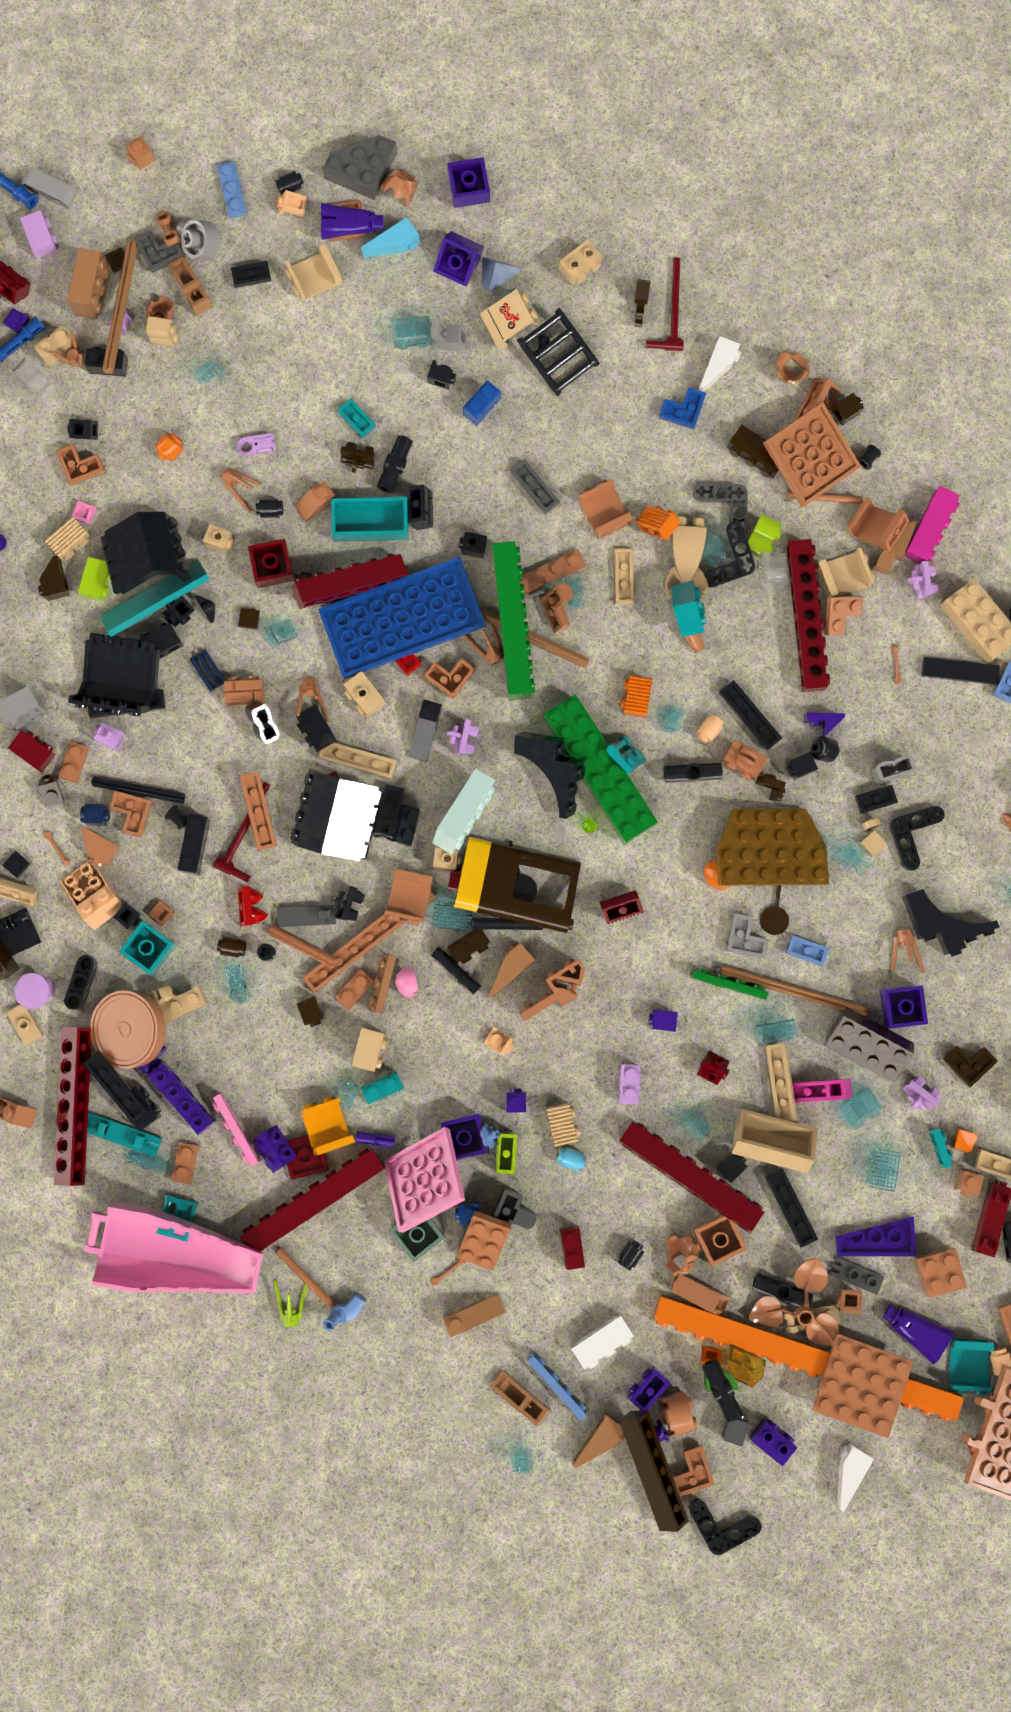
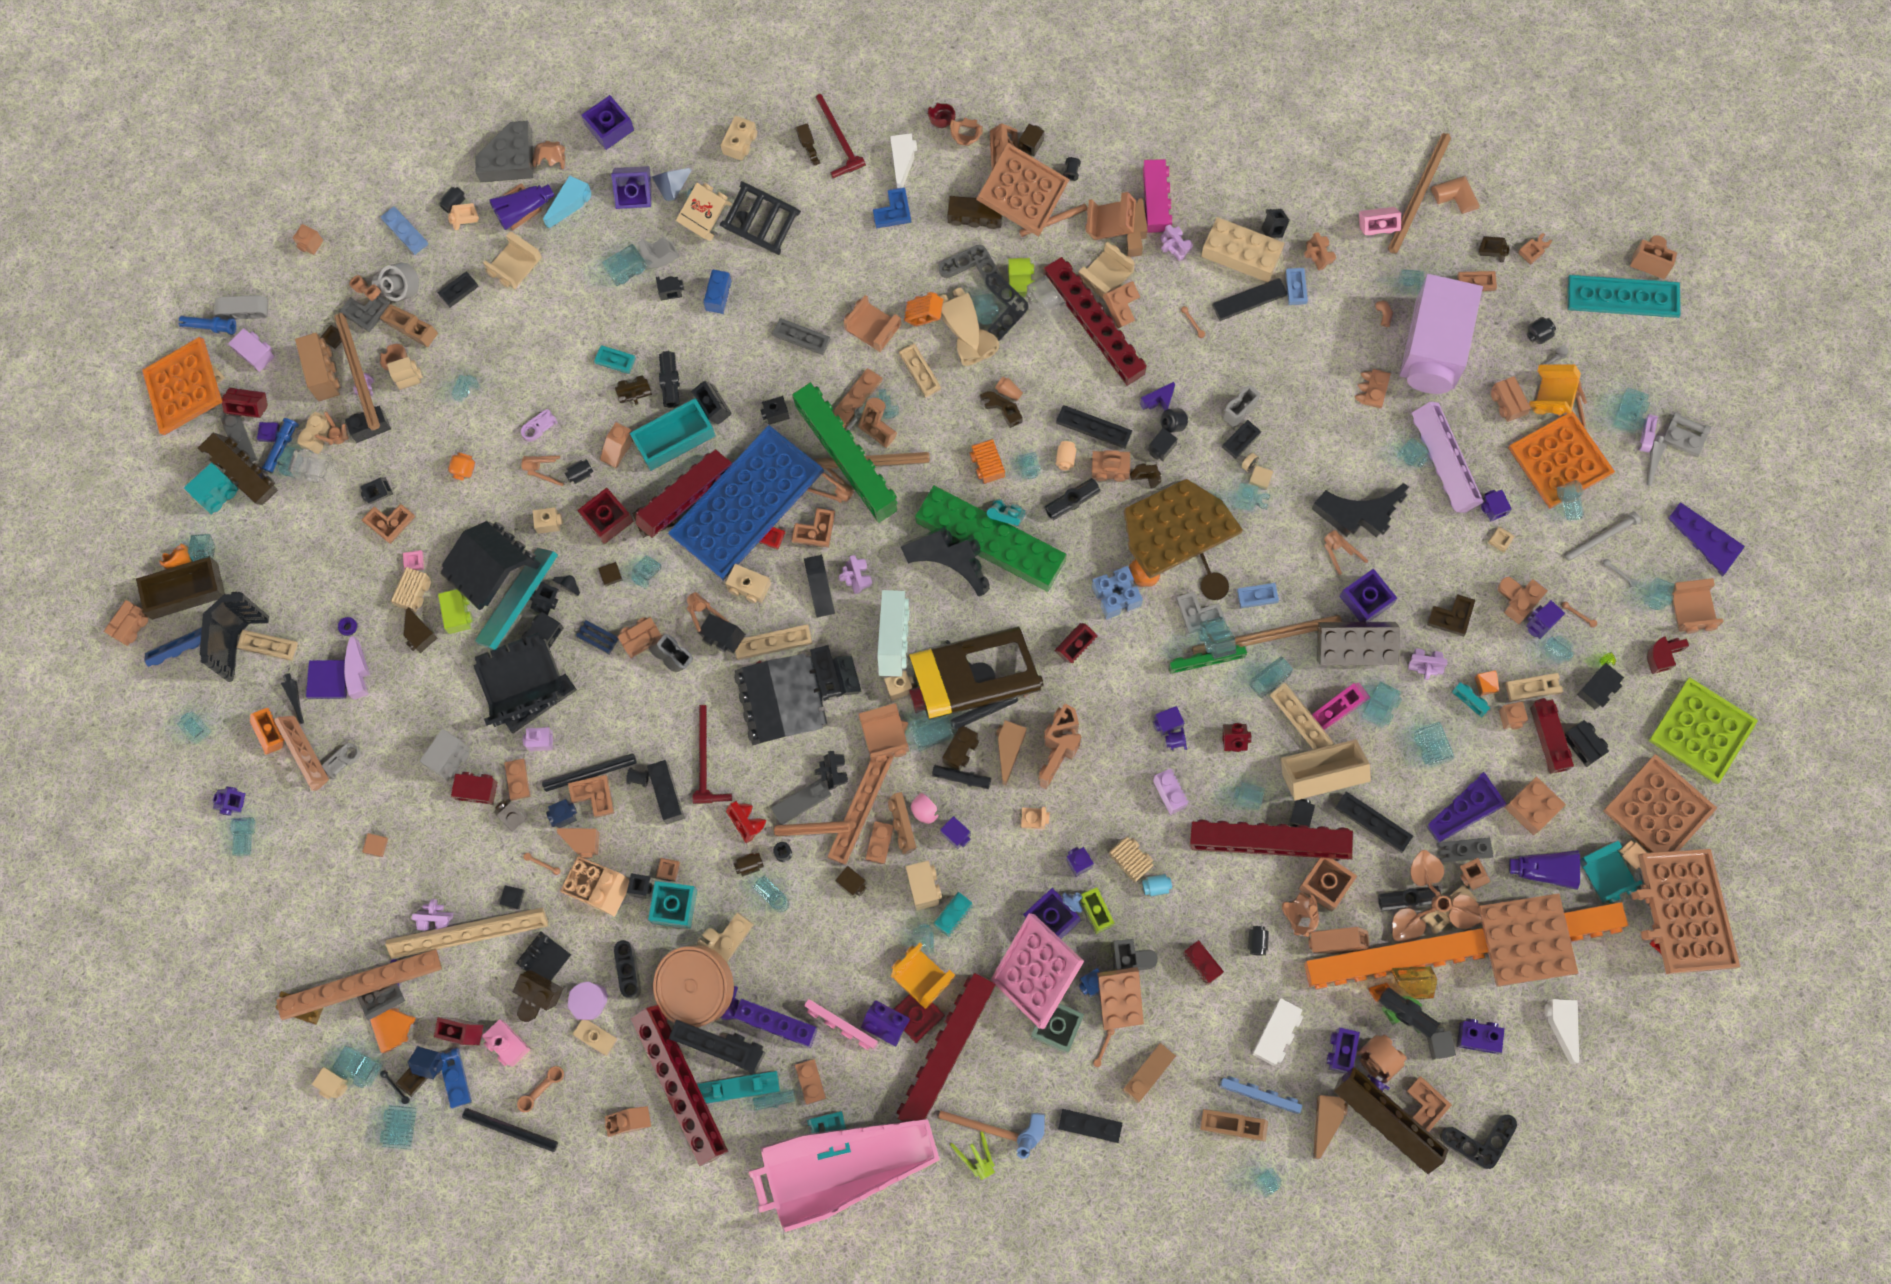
camera: 20 degrees left, 10 degrees down
(18, 355) = (284, 461): none -> clear light blue bracket
(257, 811) = (707, 732): nougat plate -> none
(375, 1139) = (972, 964): dark purple axle -> none
(399, 1330) = (1090, 1125): none -> black plate
(423, 1019) = (956, 833): none -> dark purple brick
(589, 826) = (1008, 591): clear neon green hinge -> none
(661, 1041) = (1176, 740): none -> dark purple brick
(681, 650) = (1003, 404): none -> dark brown piece
(688, 608) = (991, 363): teal brick -> none
(693, 872) = (1112, 602): none -> medium blue brick
(748, 971) = (1217, 638): none -> clear light blue brick
(778, 339) = (941, 115): none -> dark red hair
(905, 833) = (1284, 454): black beam -> none

